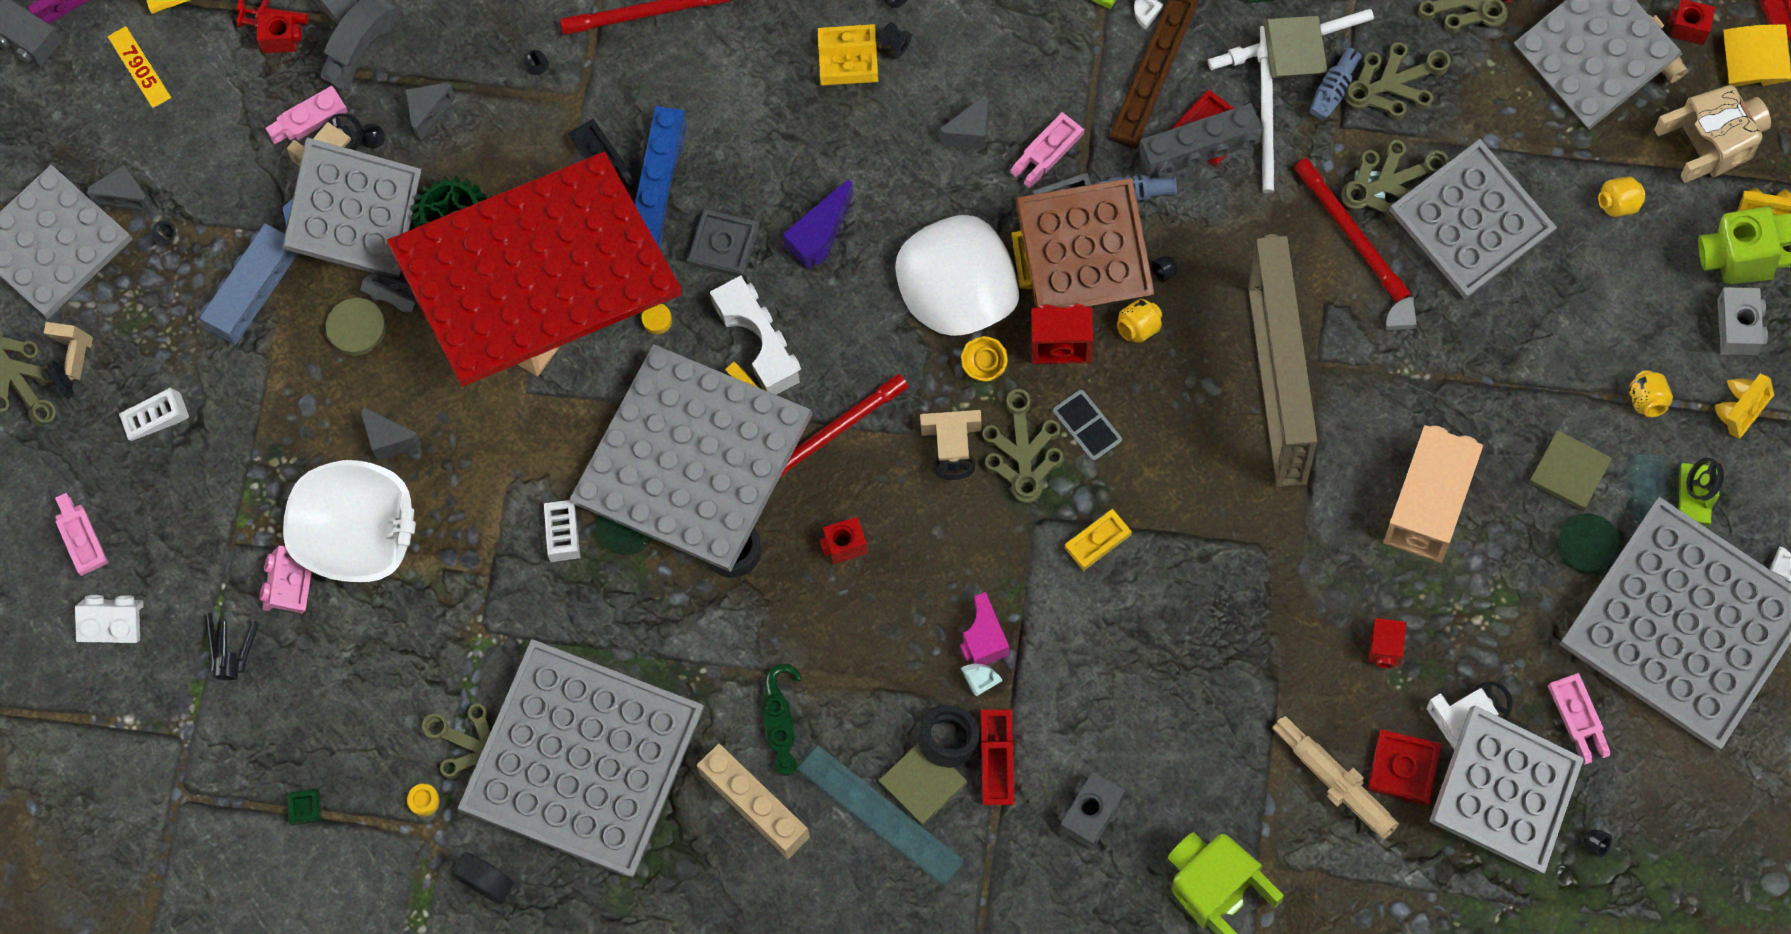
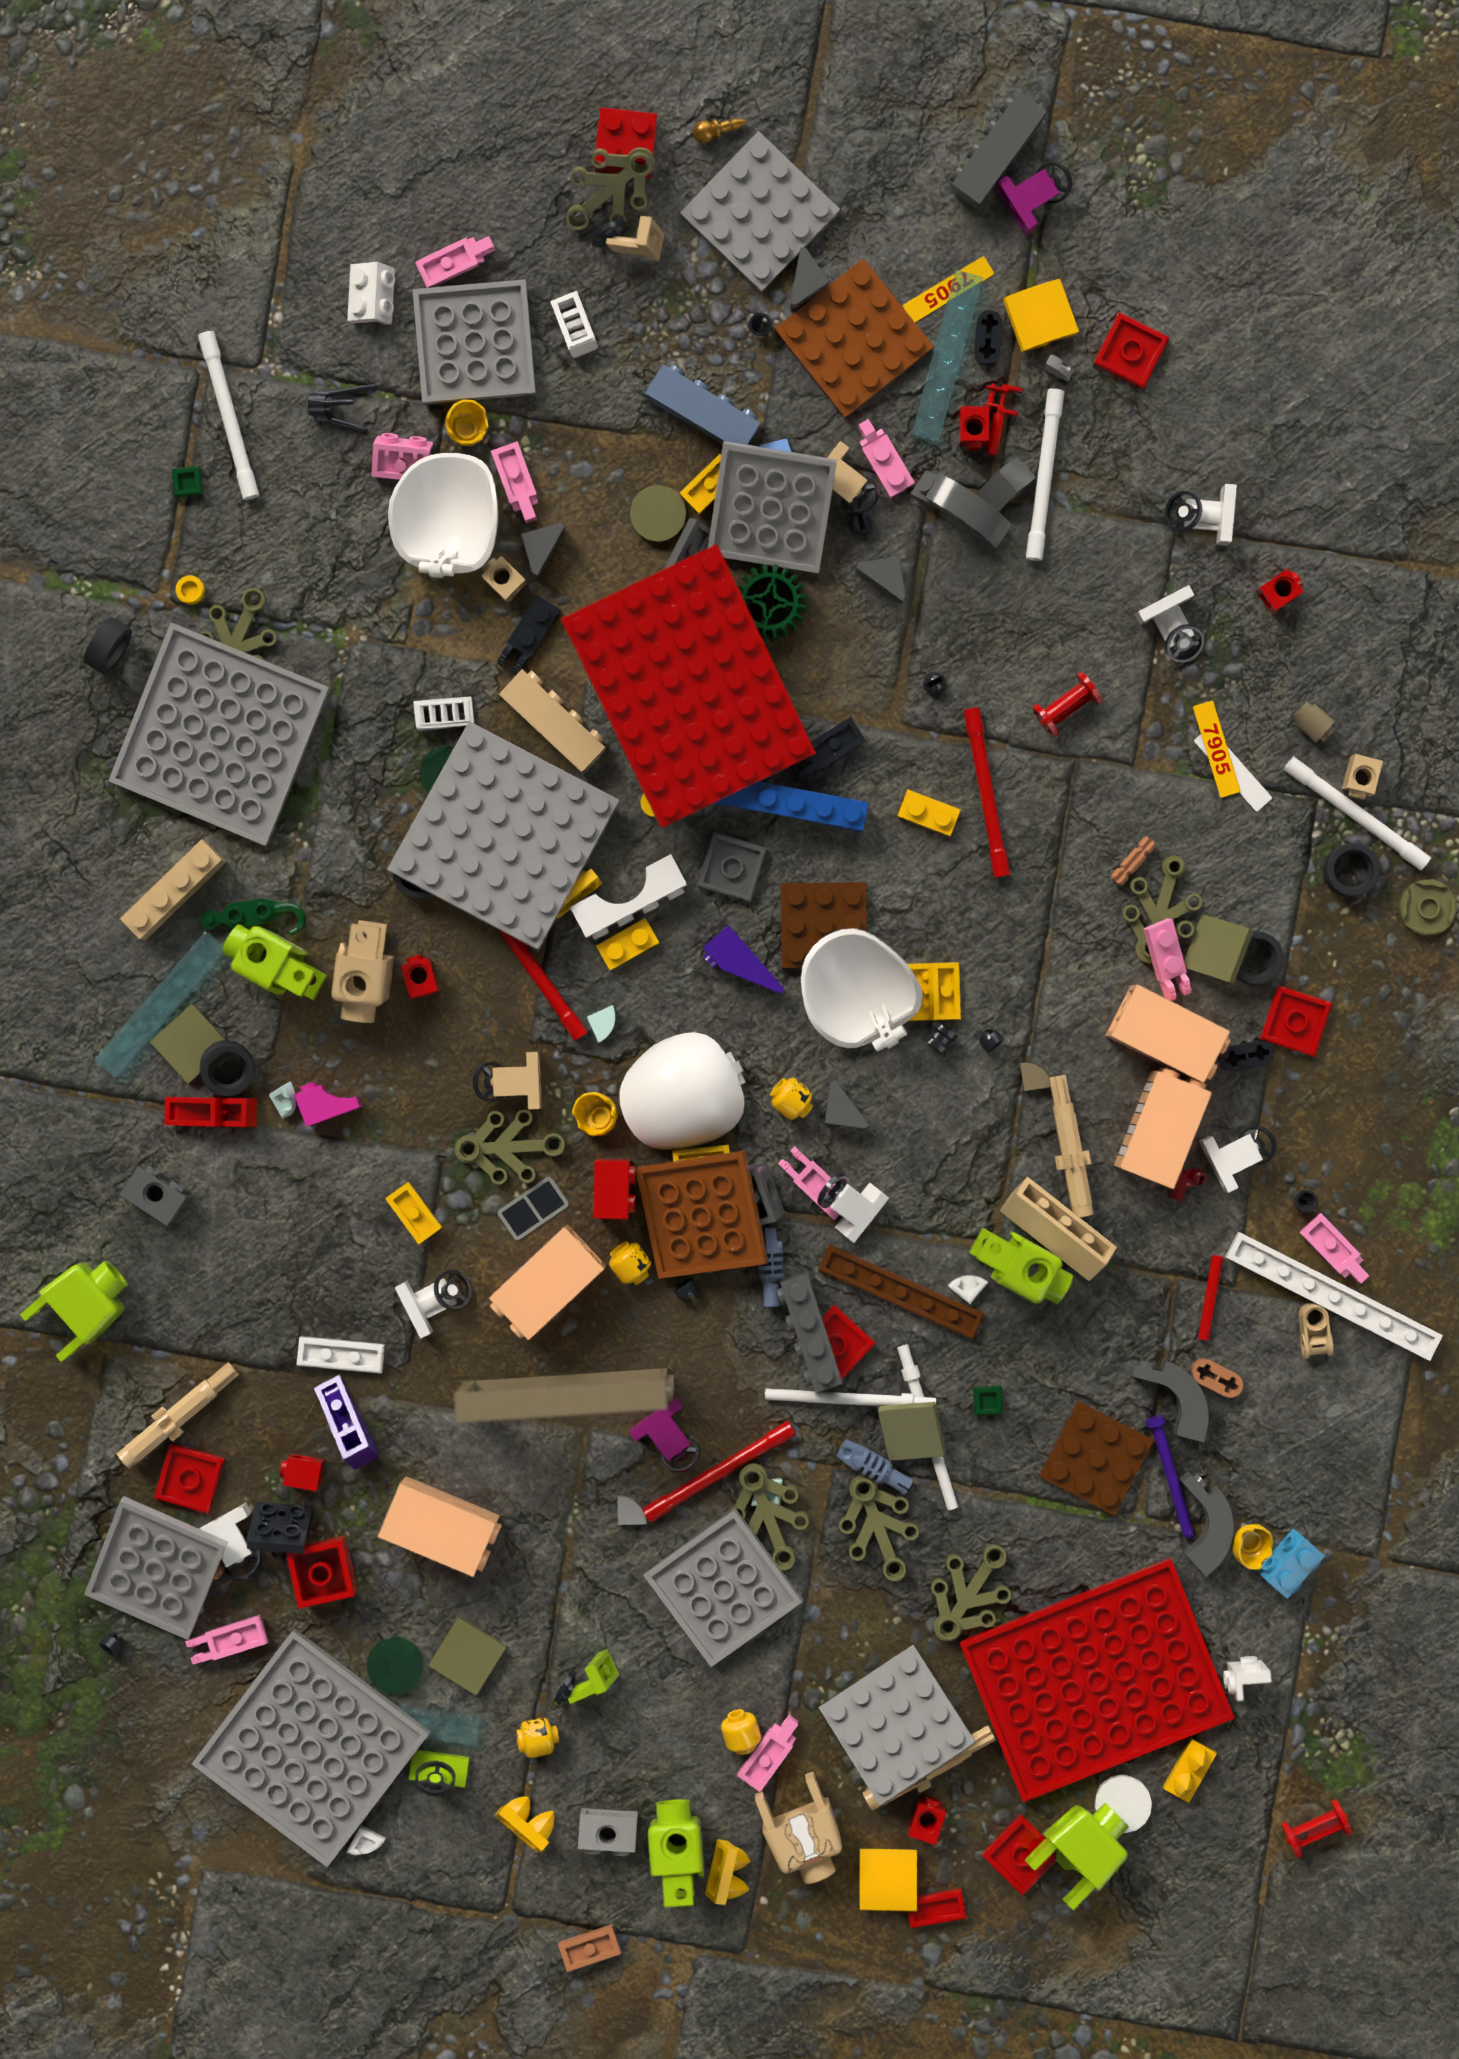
camera: 85 degrees right, 20 degrees up
(166, 512) = (474, 341): none -> light grey plate
(169, 783) = (212, 357): none -> white piece
(183, 149) = (854, 338): none -> dark orange plate
(190, 25) = (994, 338): none -> black beam
(206, 63) = (947, 356): none -> clear light blue tile
(252, 513) = (466, 423): none -> yellow hair
(296, 466) = (516, 479): none -> bright pink hinge
(327, 278) = (703, 487): none -> yellow plate
(420, 459) = (512, 587): none -> tan brick
(477, 447) = (530, 632): none -> black hinge
(571, 417) = (552, 721): none -> tan brick
(666, 62) = (928, 813): none -> yellow plate
(782, 154) = (816, 911): none -> reddish brown plate
(805, 340) = (627, 944): none -> yellow plate
(828, 589) = (366, 959): none -> tan piece
(832, 670) = (280, 969): none -> lime piece
(845, 103) = (858, 990): none -> white piece
(888, 360) = (602, 1022): none -> light aqua tile
(961, 173) = (791, 1098): none -> yellow head
(1070, 104) = (854, 1207): none -> white piece
(1164, 395) = (546, 1283): none -> light nougat brick
(1190, 518) = (433, 1299): none -> white piece
(1256, 612) = (340, 1354): none -> white tile
(1317, 276) = (668, 1436): none -> magenta piece
(1329, 599) = (346, 1423): none -> dark purple slope
(1451, 659) = (279, 1528): none -> black plate
(1494, 615) = (322, 1572): none -> red brick
(1592, 341) = (601, 1675): none -> lime piece
(1653, 176) = (768, 1754): none -> bright pink hinge

